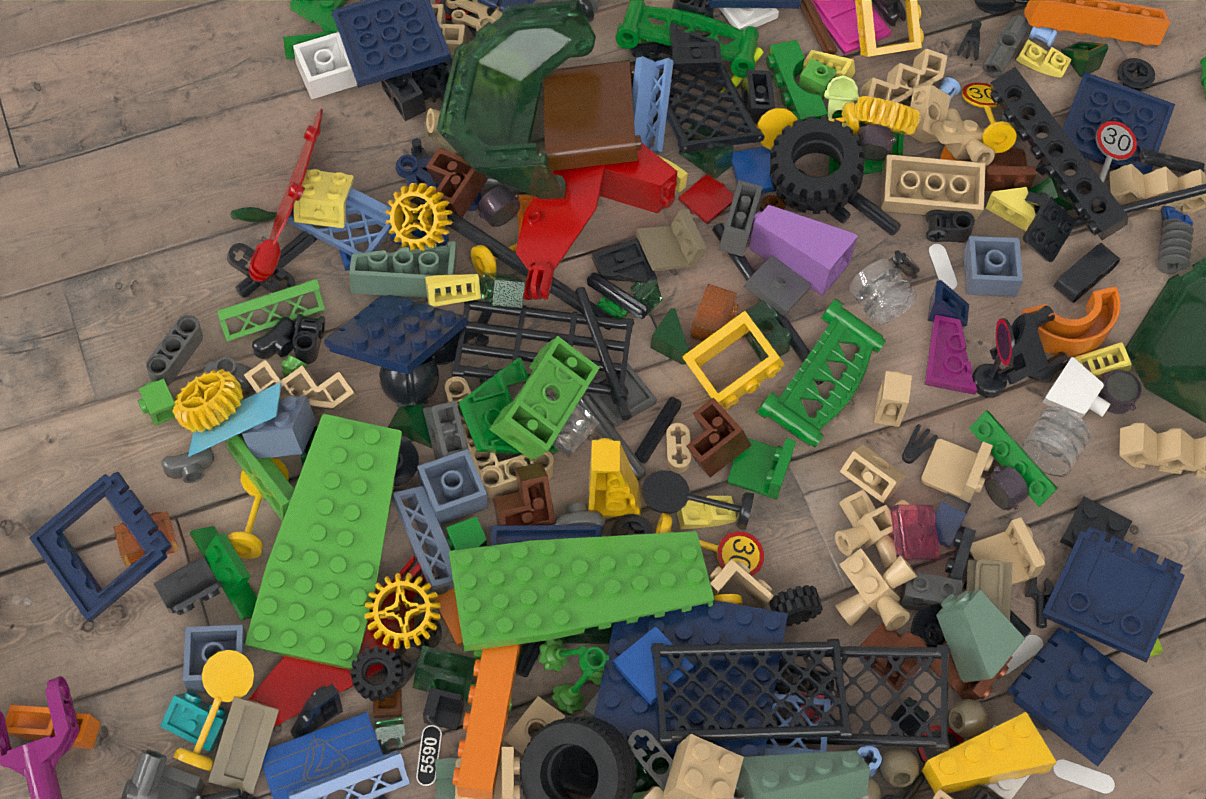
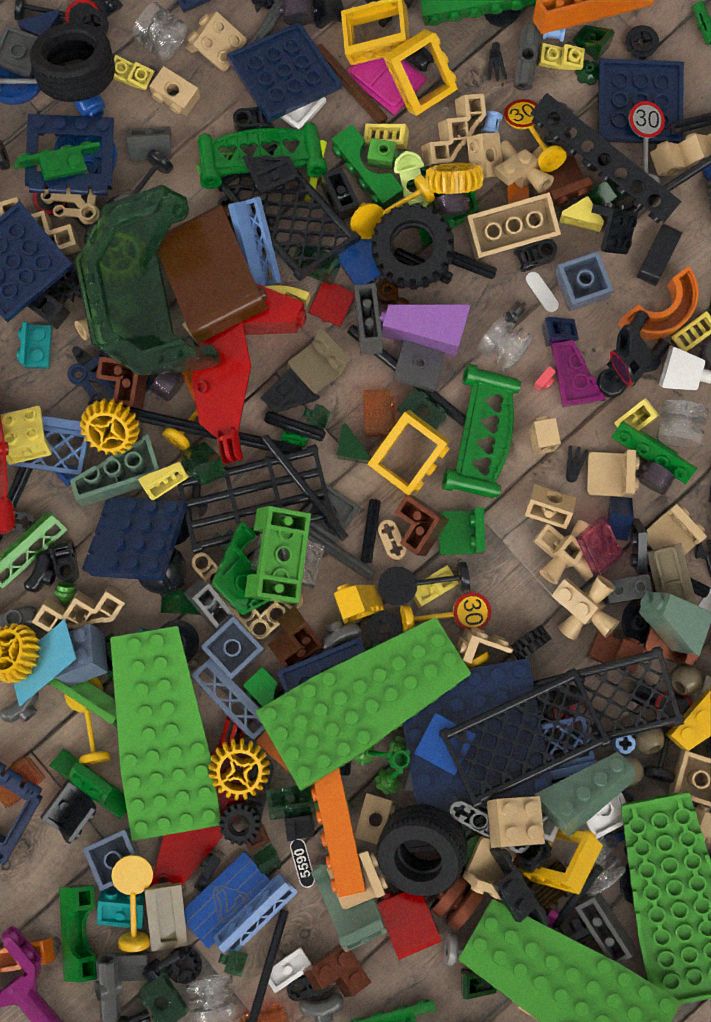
camera: 15 degrees left, 20 degrees up
(121, 750) = (77, 956): none -> green arch
(374, 127) = (35, 346): none -> teal bracket
(914, 347) = (545, 379): none -> coral plate
(1014, 417) = (639, 415): none -> light yellow slope
(1067, 84) = (588, 73): none -> dark green plant

